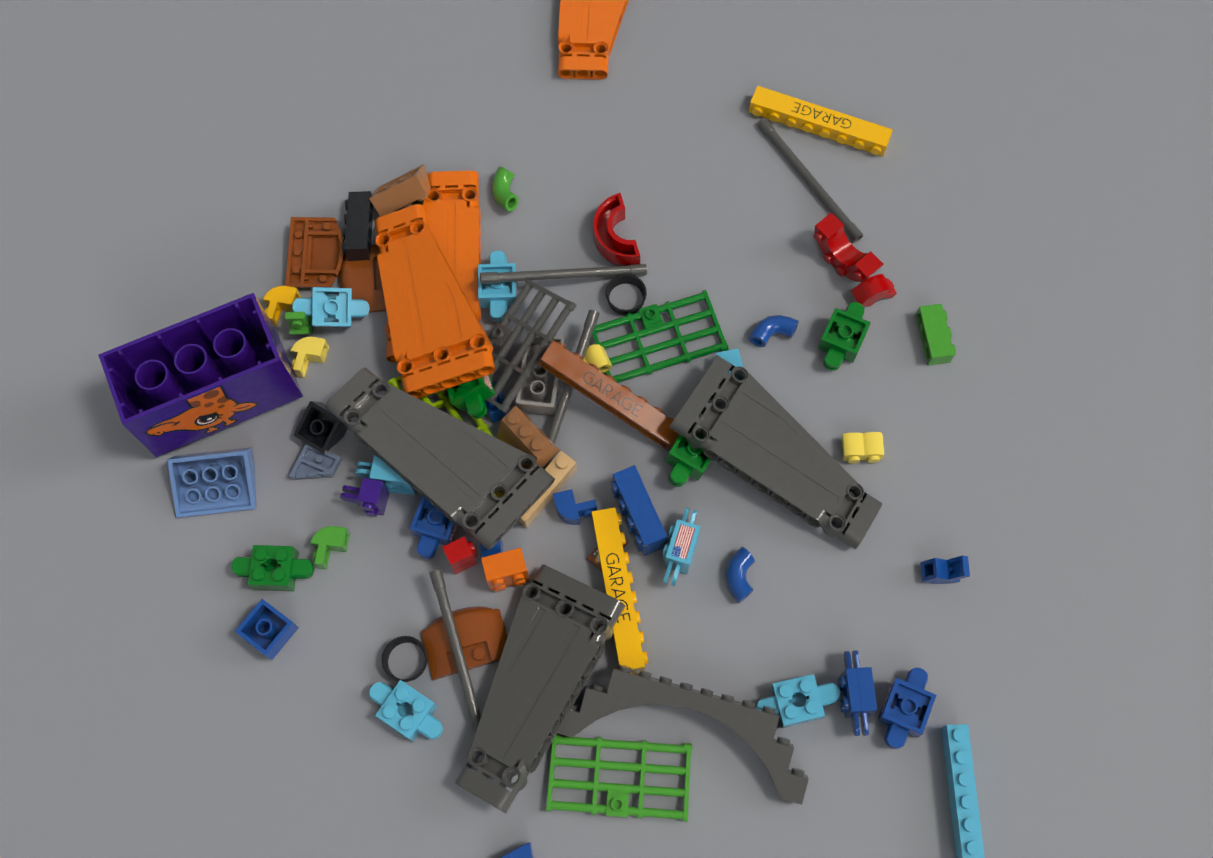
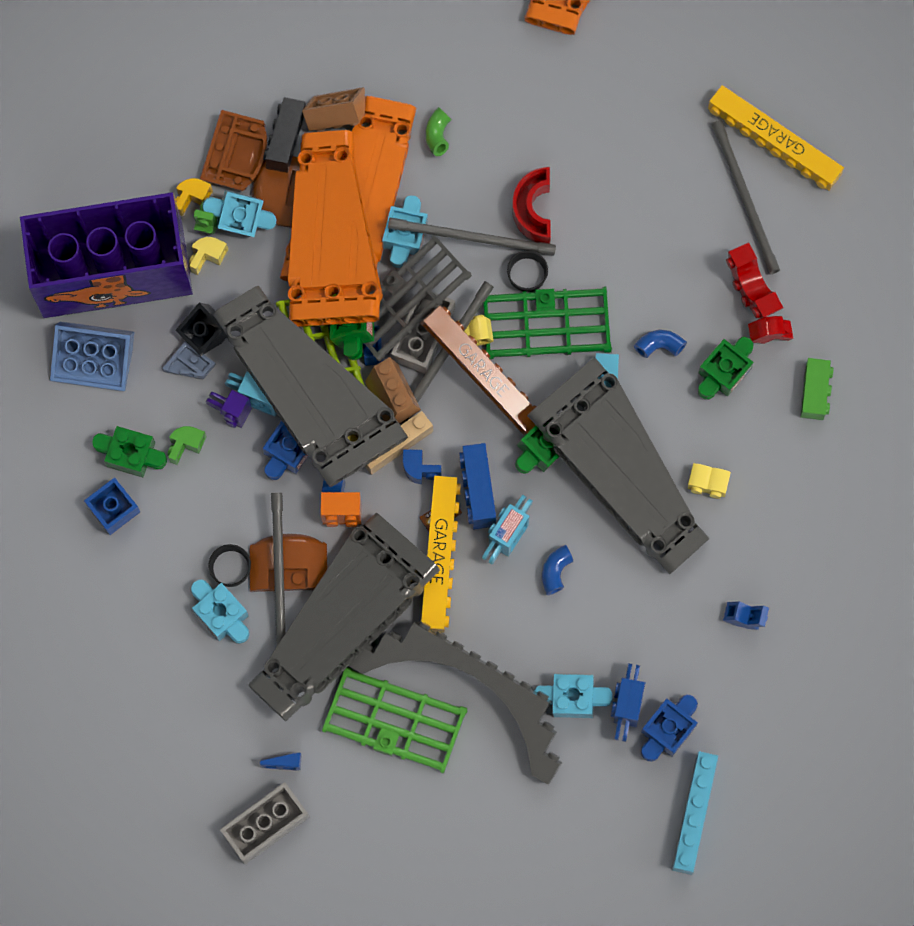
camera: 15 degrees right, 5 degrees up
(460, 554) = (303, 484): red brick -> none

